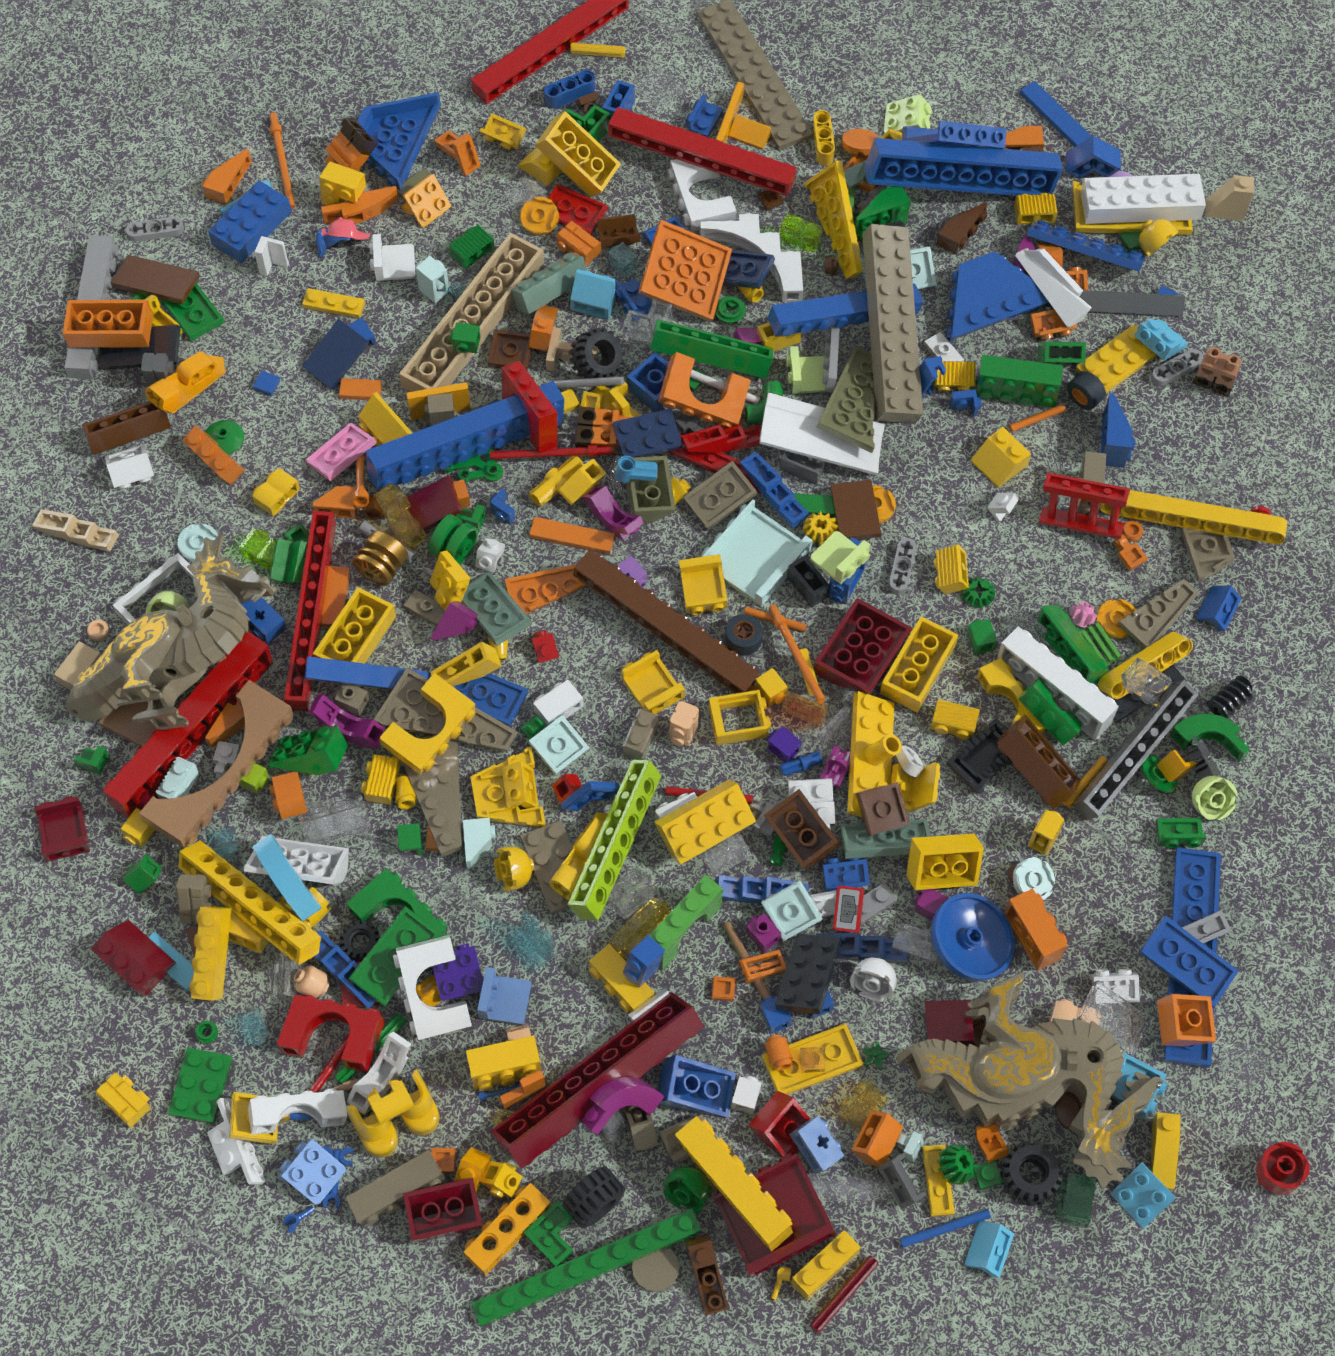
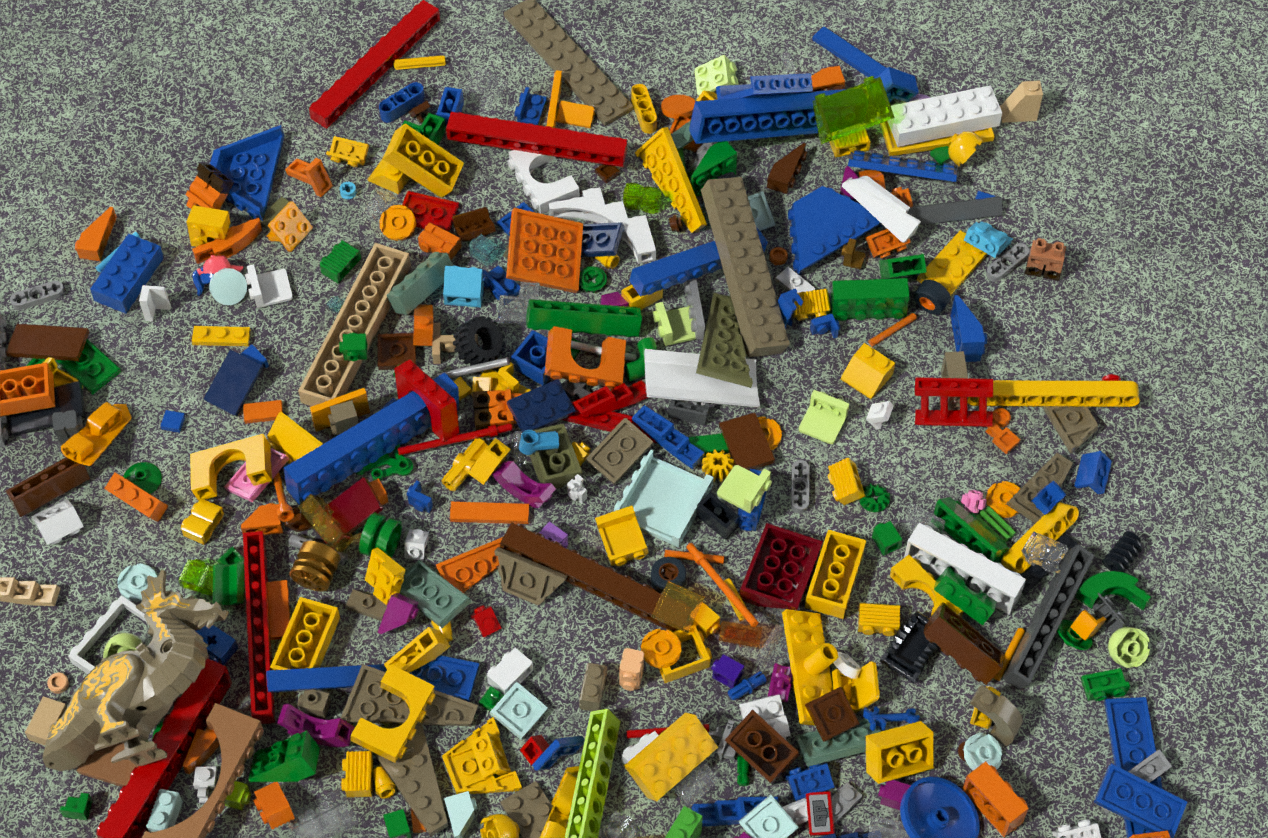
camera: 10 degrees left, 5 degrees down
(276, 132) = (134, 186): orange bar -> none
(294, 432) = (208, 463): none -> yellow arch
(350, 252) = (228, 286): none -> light aqua tile
(432, 279) = (310, 297): light aqua brick -> none
(474, 517) = (395, 512): green panel -> none
(495, 178) = (347, 195): none -> medium azure bush
(595, 609) = (526, 578): none -> dark tan wing
(652, 683) = (593, 637): yellow panel -> none
(665, 527) = (575, 489): none -> white plate
(718, 708) = (661, 648): none -> light orange tile
(745, 668) = (678, 607): none -> clear yellow tile
(928, 823) = (876, 719): none -> blue bar
(932, 319) = (778, 256): none -> orange tile
(943, 498) = (824, 417): none -> yellowish green bracket
(1010, 333) = (851, 257): none -> pearl gold bracket
(1042, 175) = (851, 110): none -> clear neon green windscreen
(1060, 839) = (1001, 712): none -> dark tan arch
(1163, 624) = (1048, 497): none -> blue bracket

